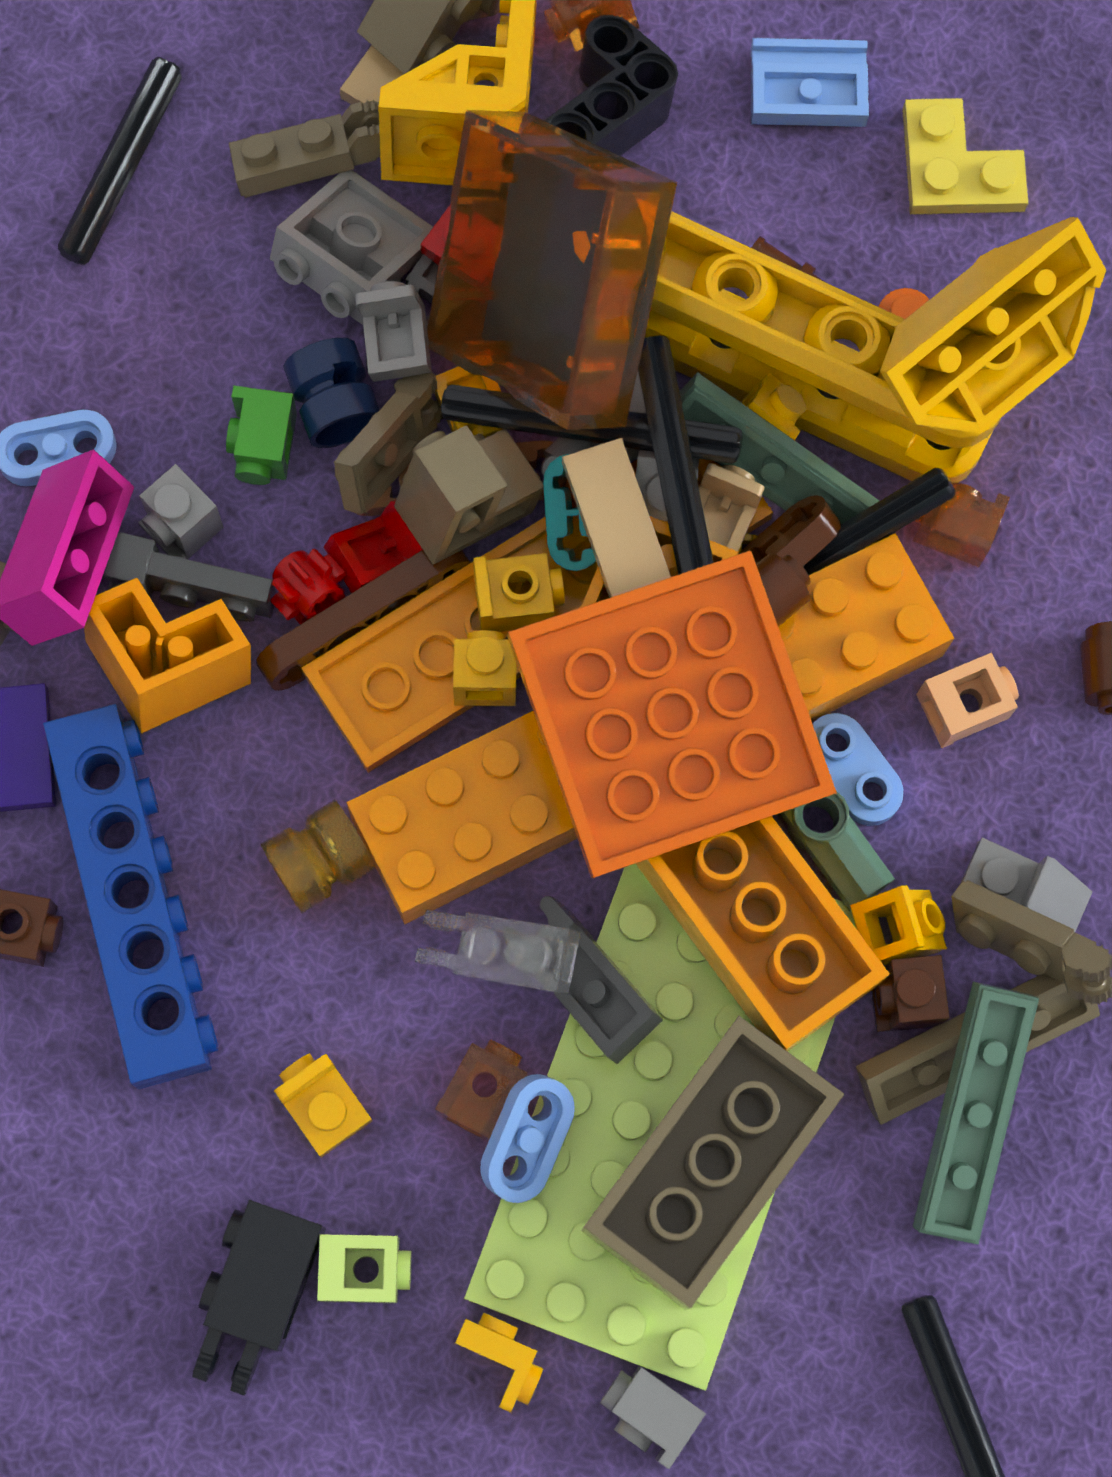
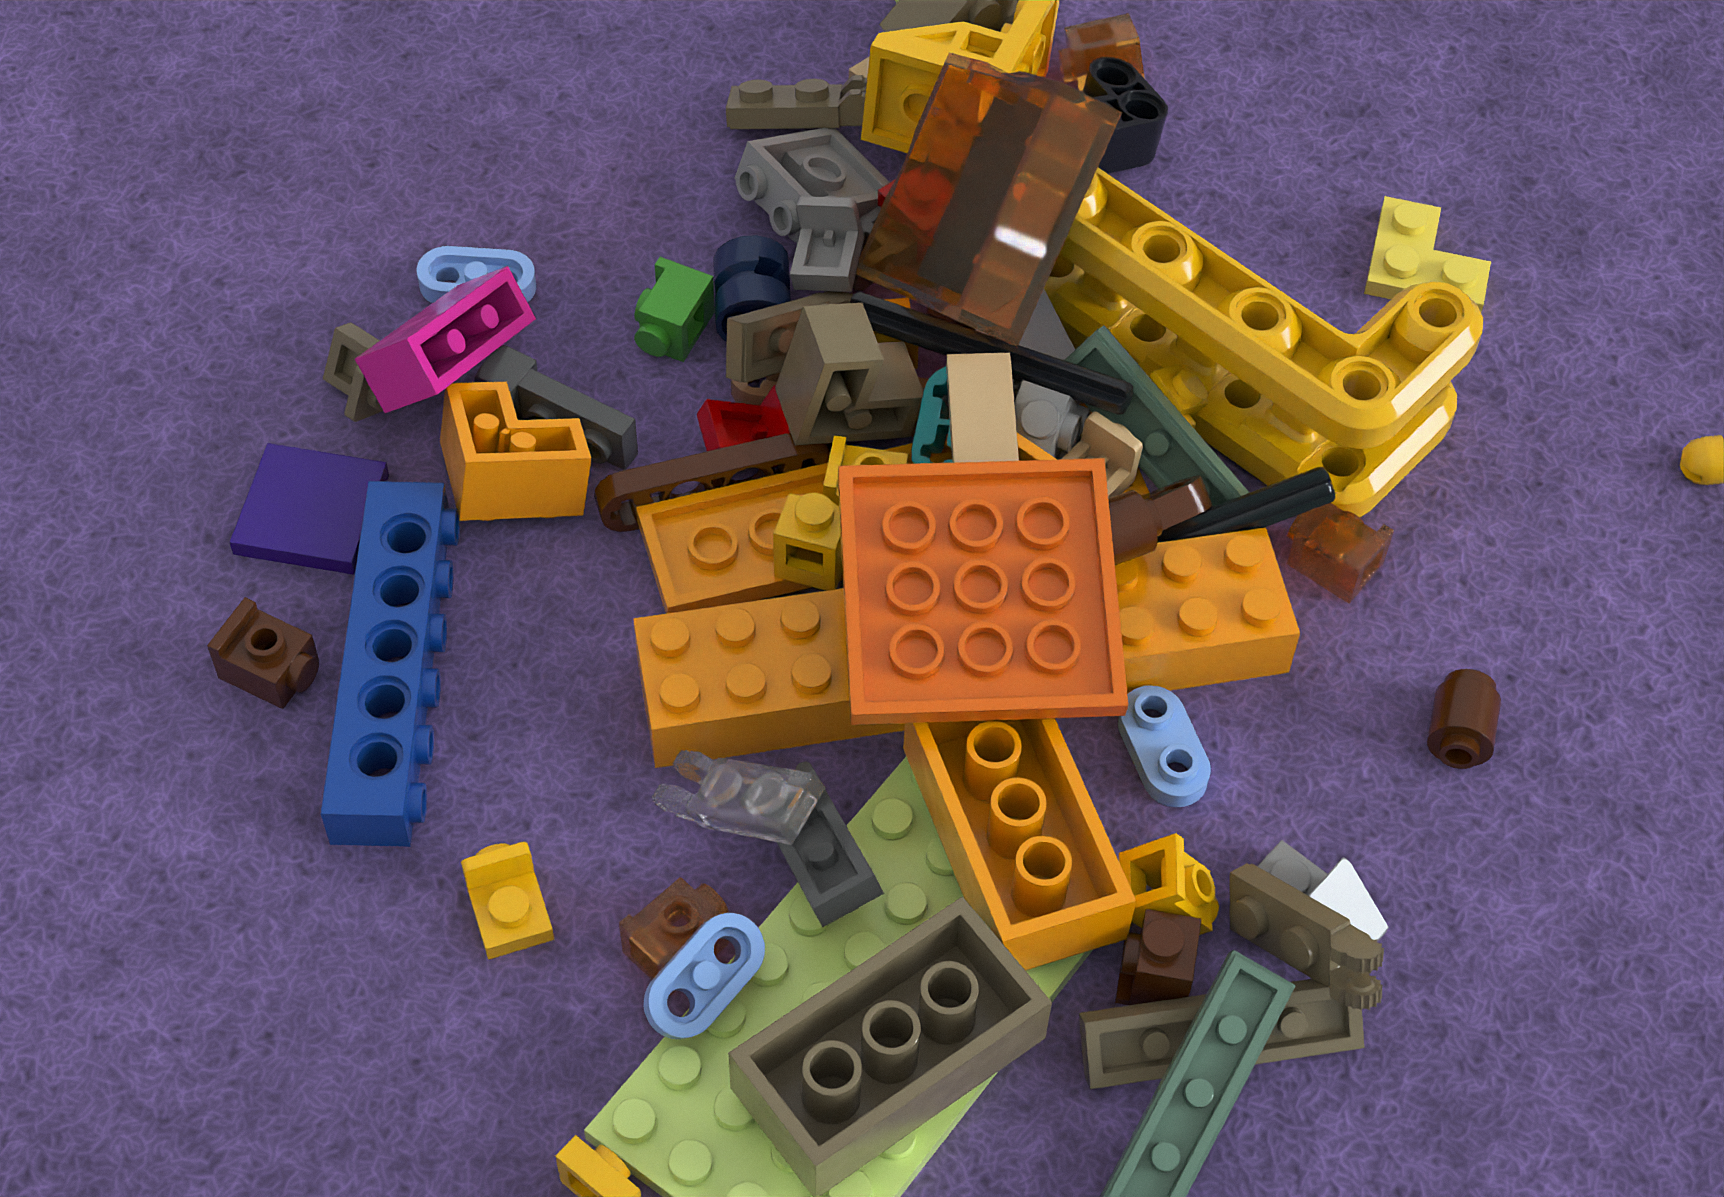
camera: 20 degrees right, 20 degrees down
(119, 161) = (626, 79): black axle -> none
(179, 514) = (571, 349): light grey brick -> none
(257, 1287) = (372, 1054): black hinge -> none
(306, 584) = (667, 434): red gear -> none
(318, 856) = (589, 671): clear yellow wheel -> none
(337, 1263) = (479, 1044): yellowish green brick -> none
(673, 455) = (1057, 366): black axle -> none
(809, 82) = (1294, 162): light blue plate -> none
(842, 853) = (1123, 803): sand green piece -> none
(984, 680) = (1301, 705): light nougat brick -> none
(995, 330) = (1408, 329): yellow wedge -> none

